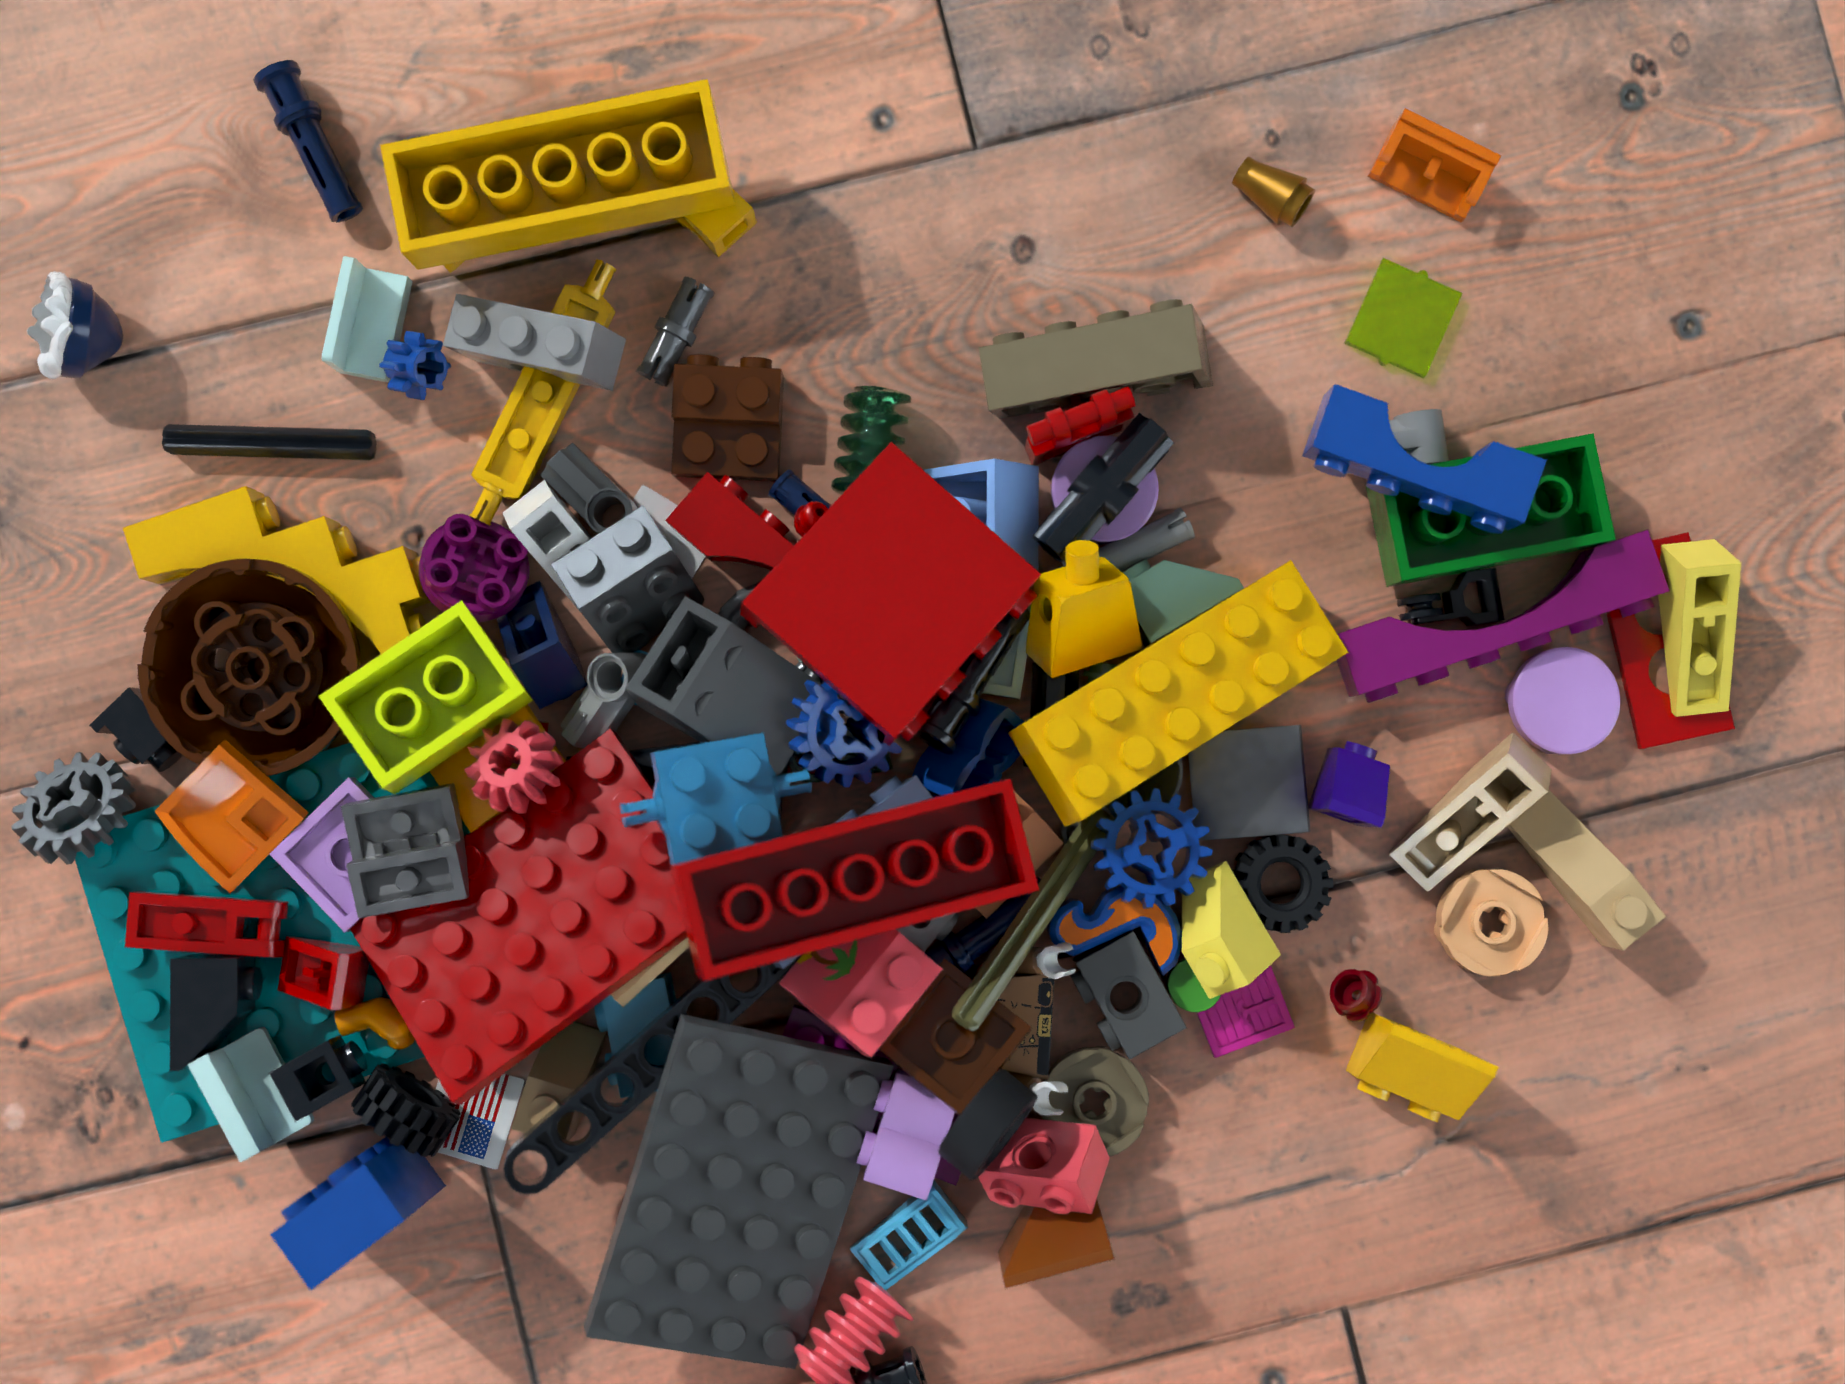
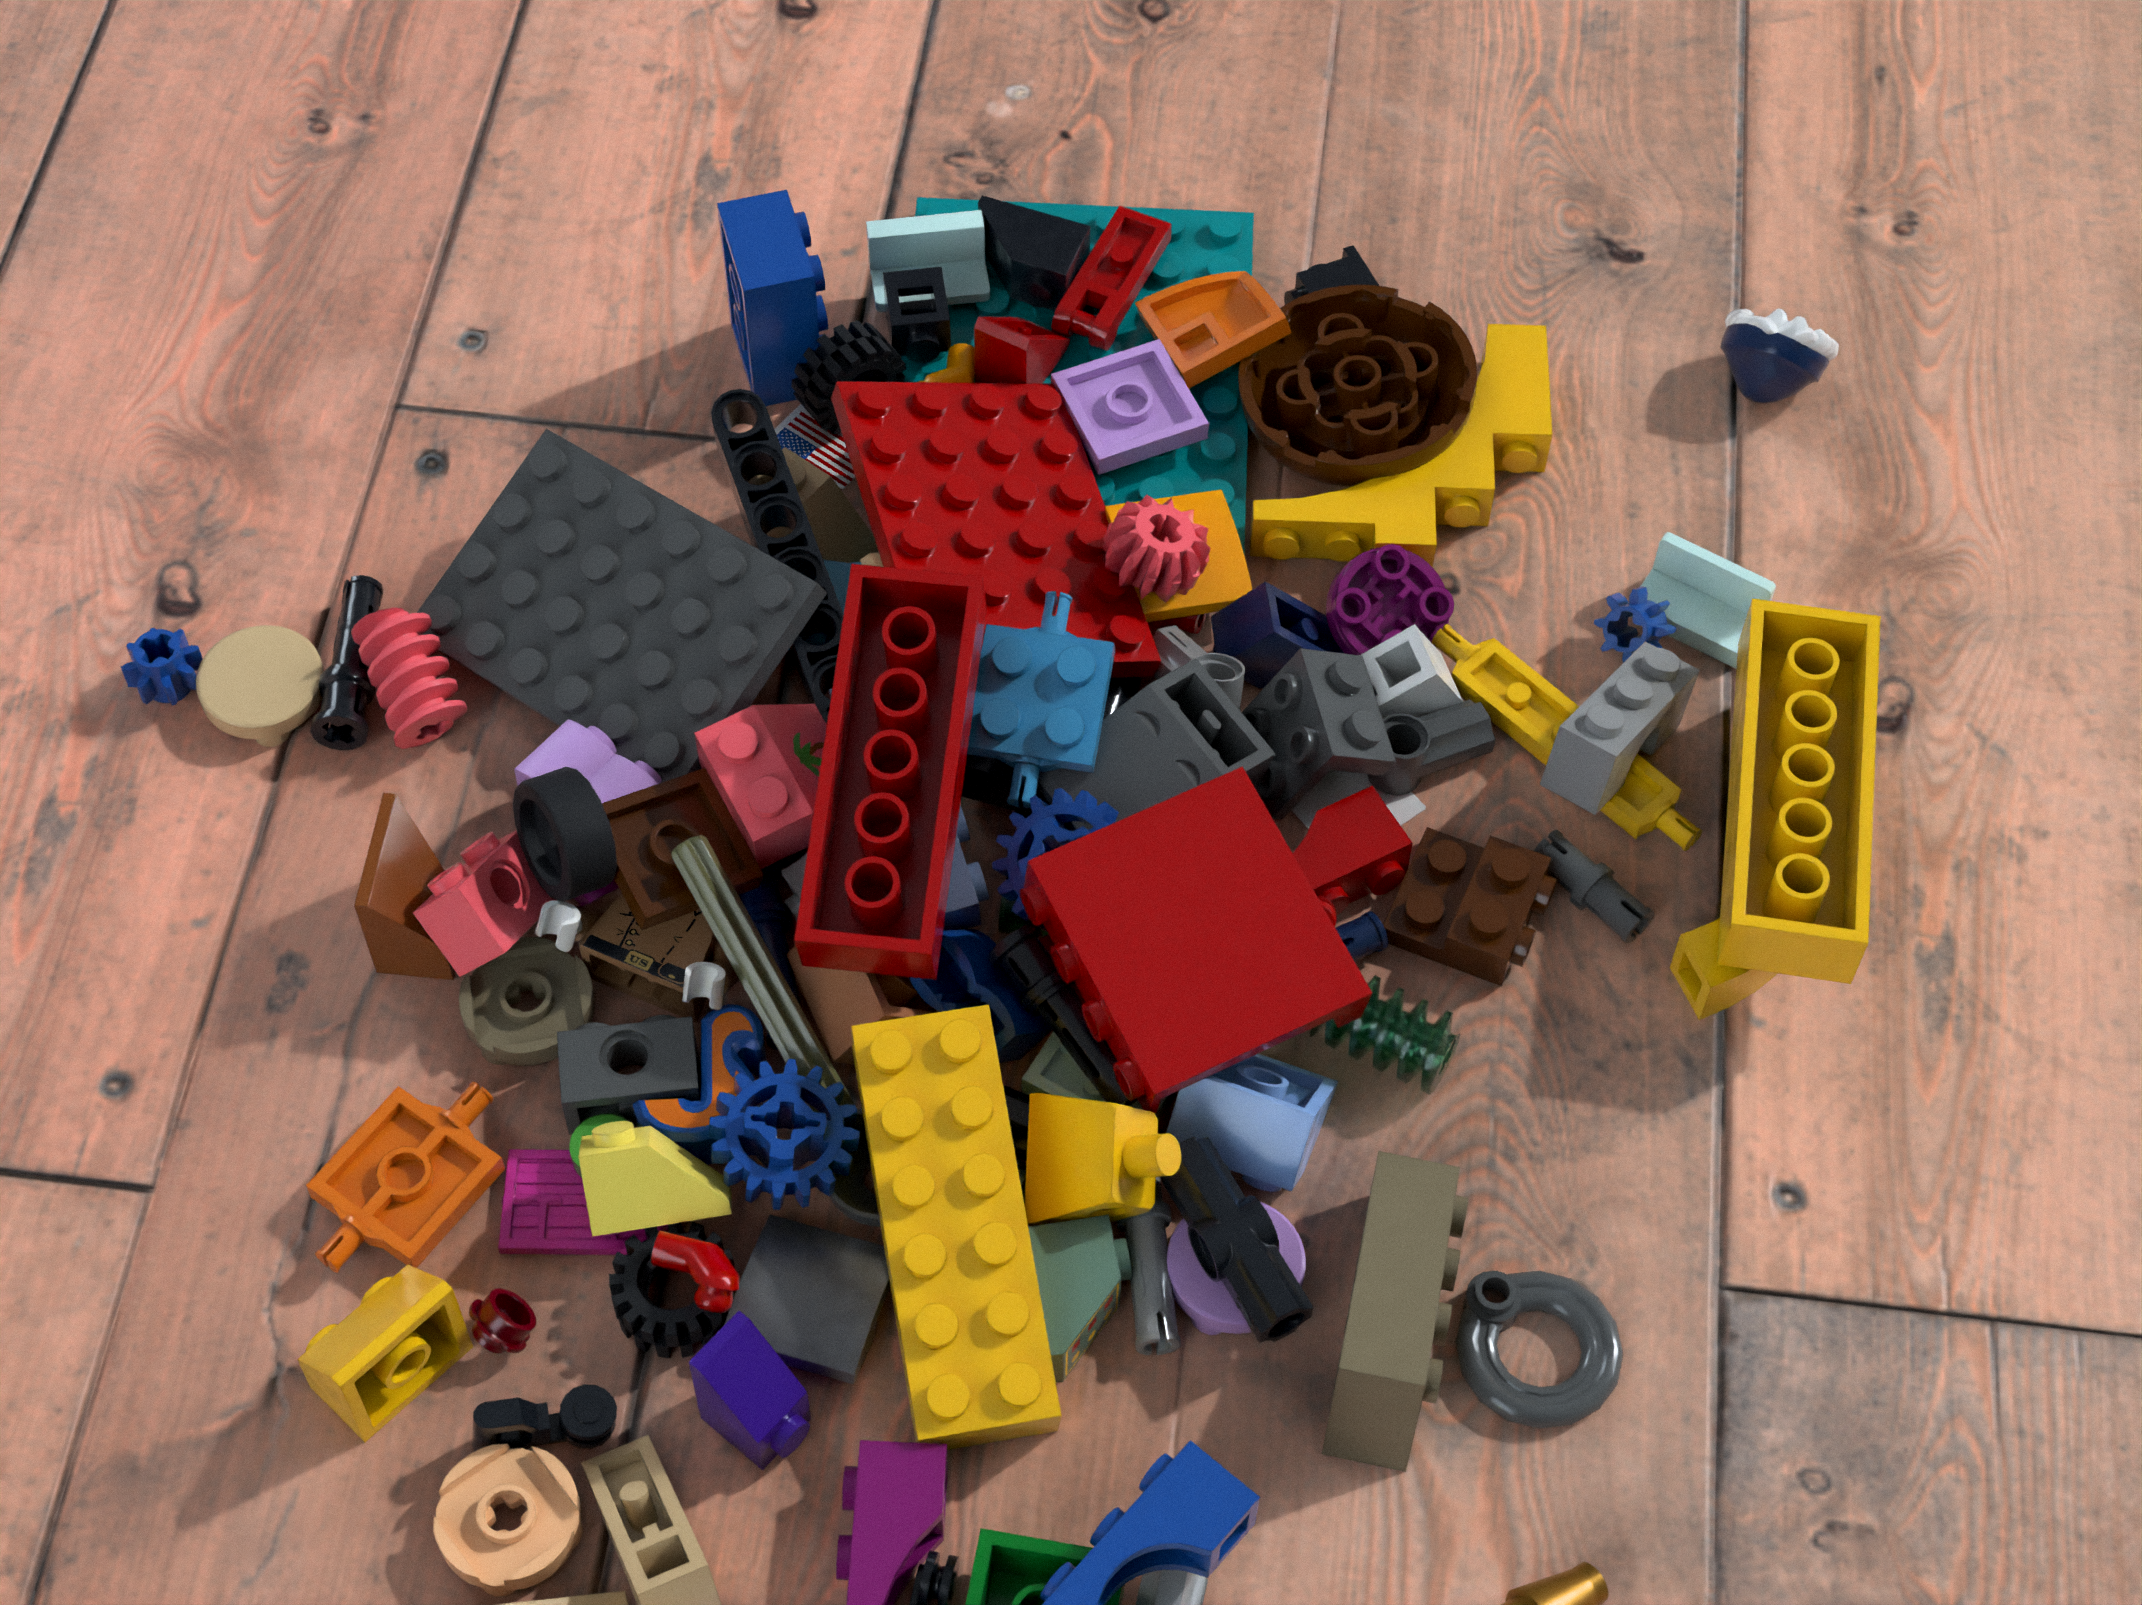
camera: 110 degrees right, 30 degrees down
(73, 808) = (1276, 215): dark grey gear -> none
(269, 442) = (1596, 488): black axle -> none
(300, 120) = (1949, 612): dark blue pin -> none
(406, 850) = (1110, 439): flat silver slope -> none
(425, 698) = (1261, 493): neon yellow brick -> none
(945, 1210) = (489, 815): medium azure slope -> none
(1061, 430) = (1325, 1245): red plate -> none
(1080, 303) = (1551, 1294): none -> dark grey piece
(1273, 1121) = (405, 1177): none -> orange plate
(1275, 859) = (706, 1265): none -> red arm
(1399, 903) = (584, 1421): none -> black piece

